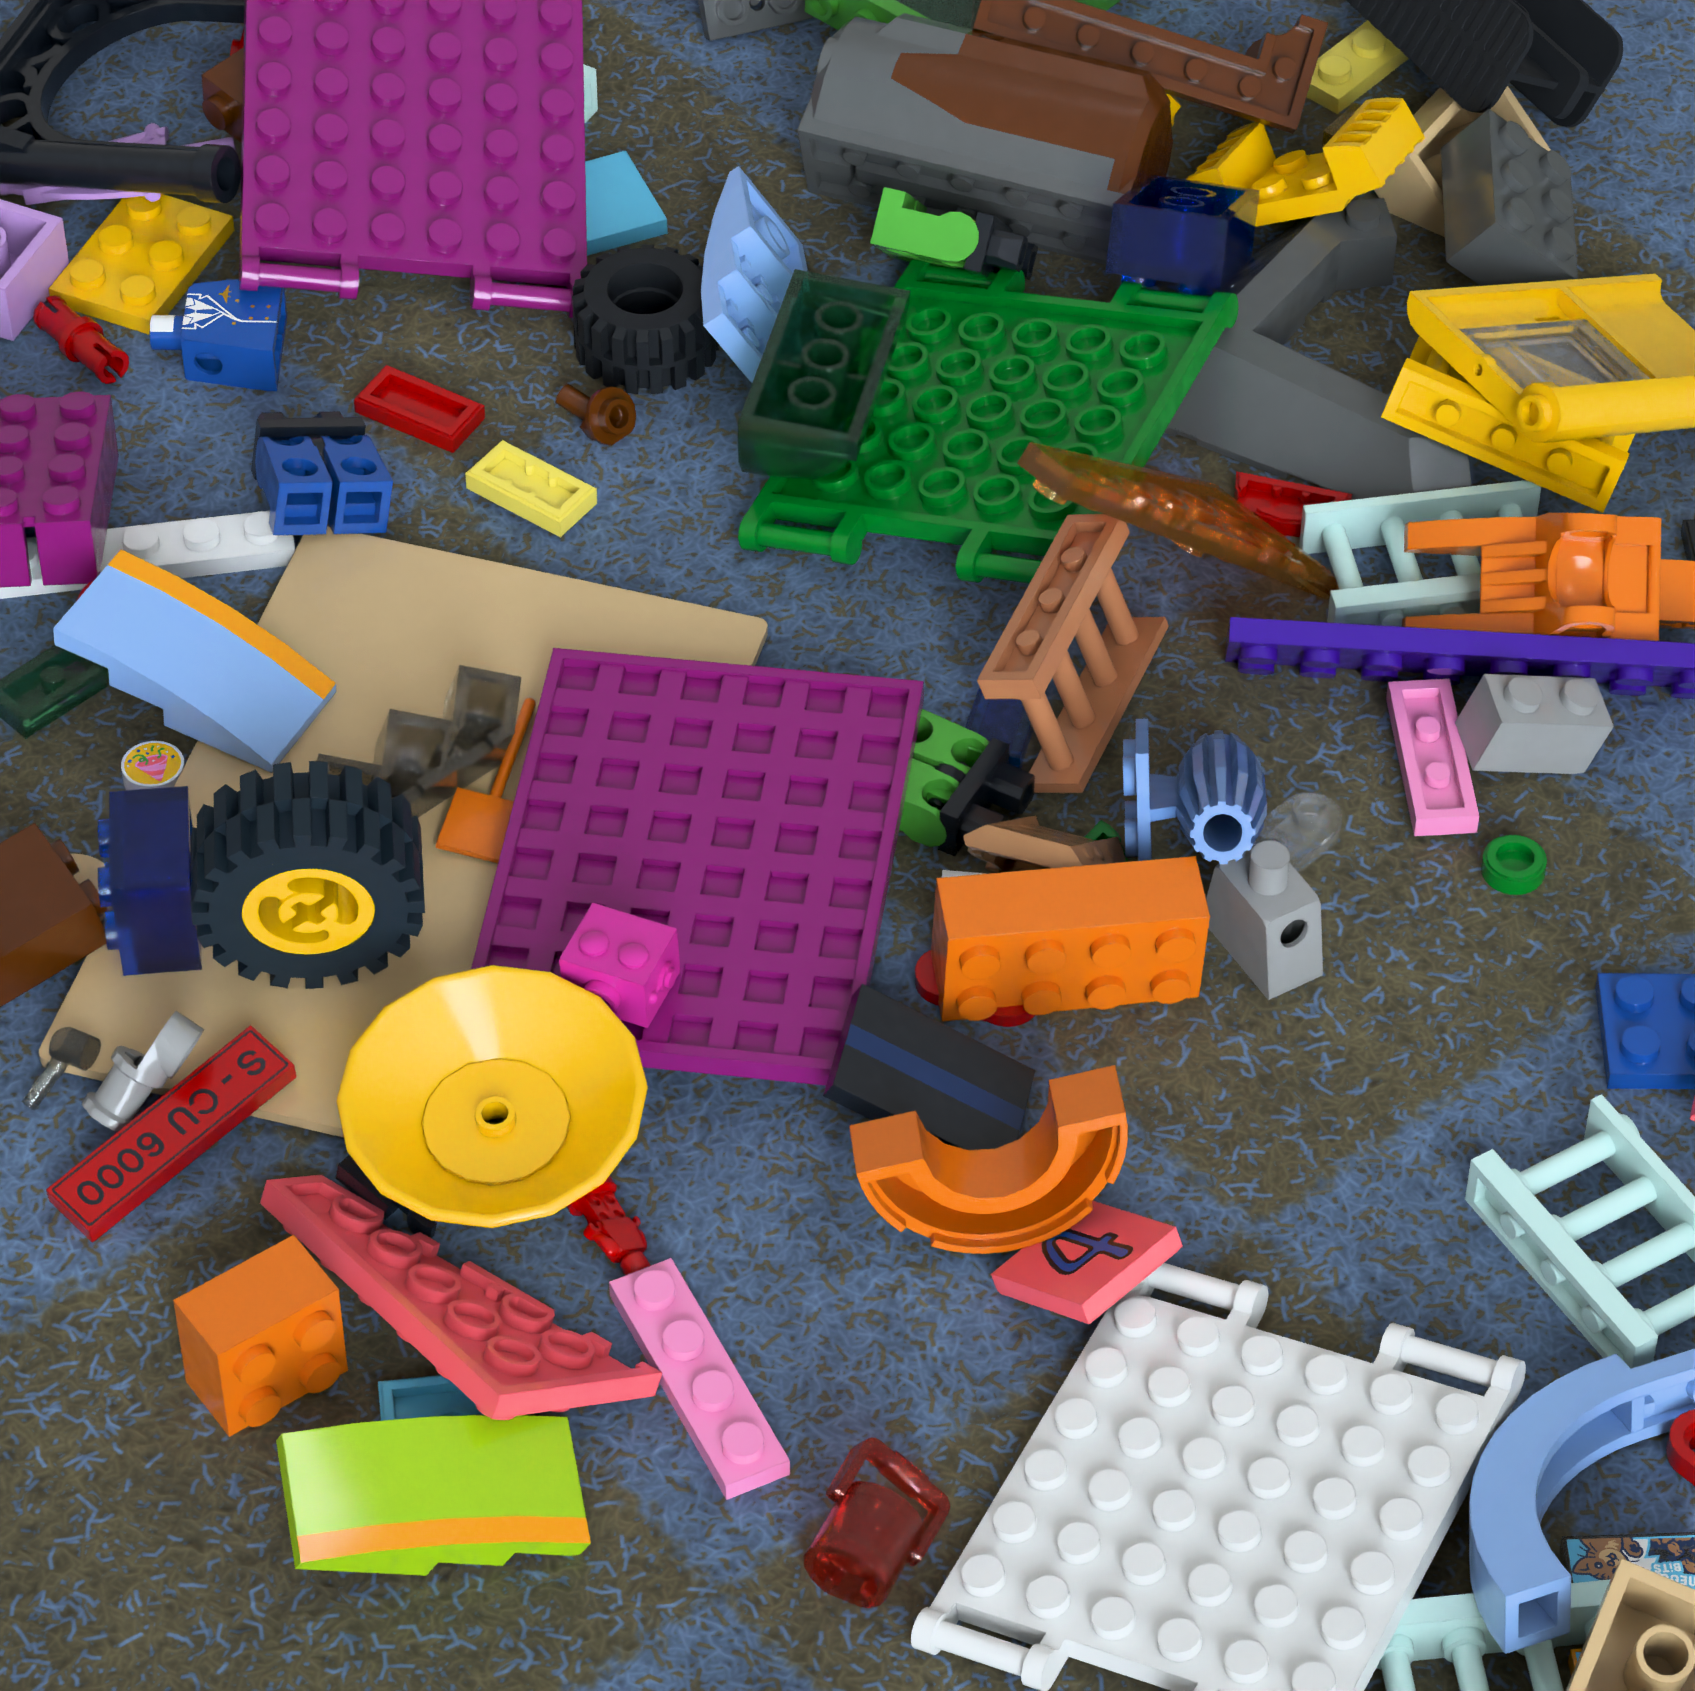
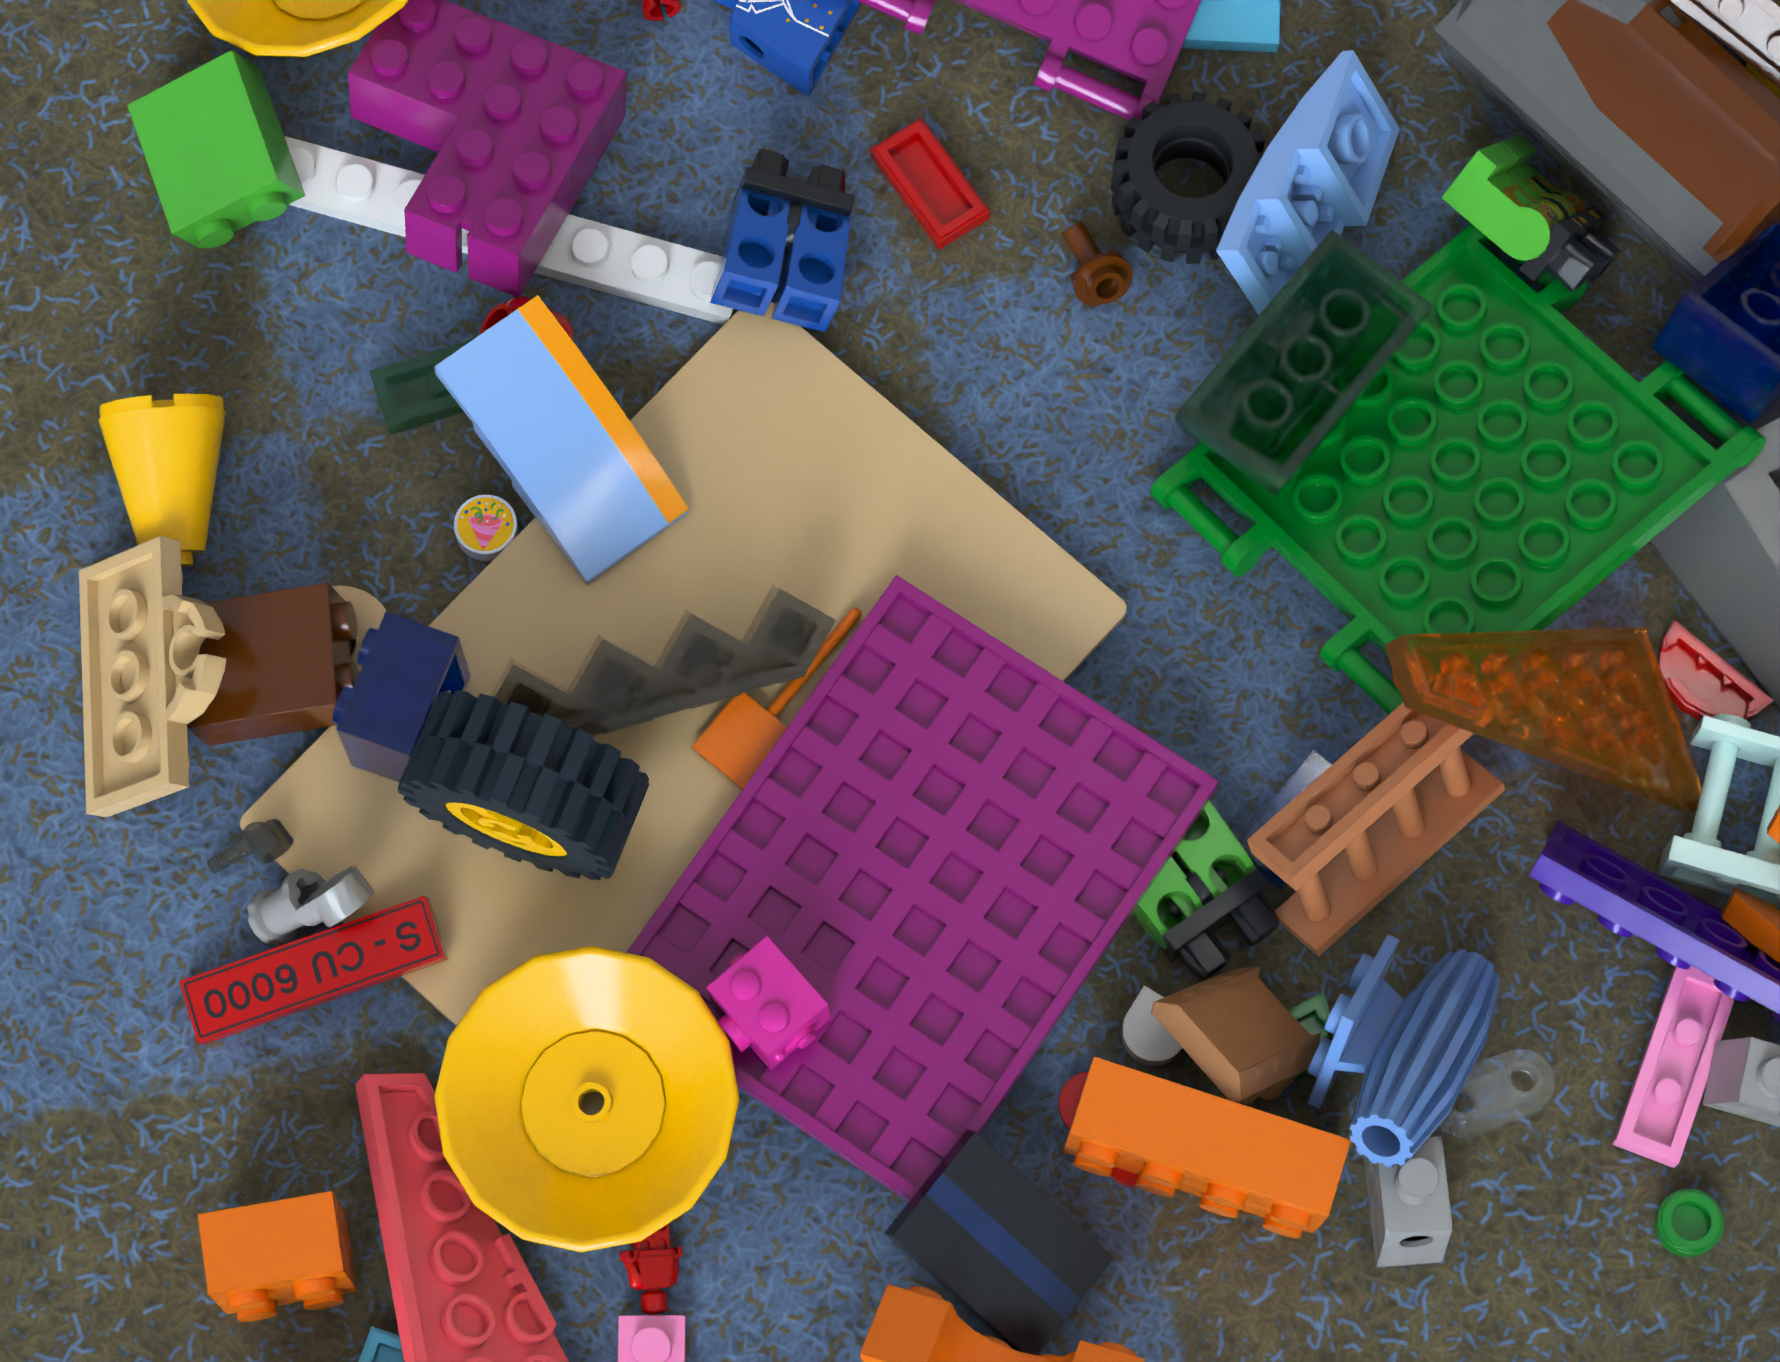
camera: 25 degrees right, 25 degrees up
(531, 488) = (985, 338): light yellow plate -> none

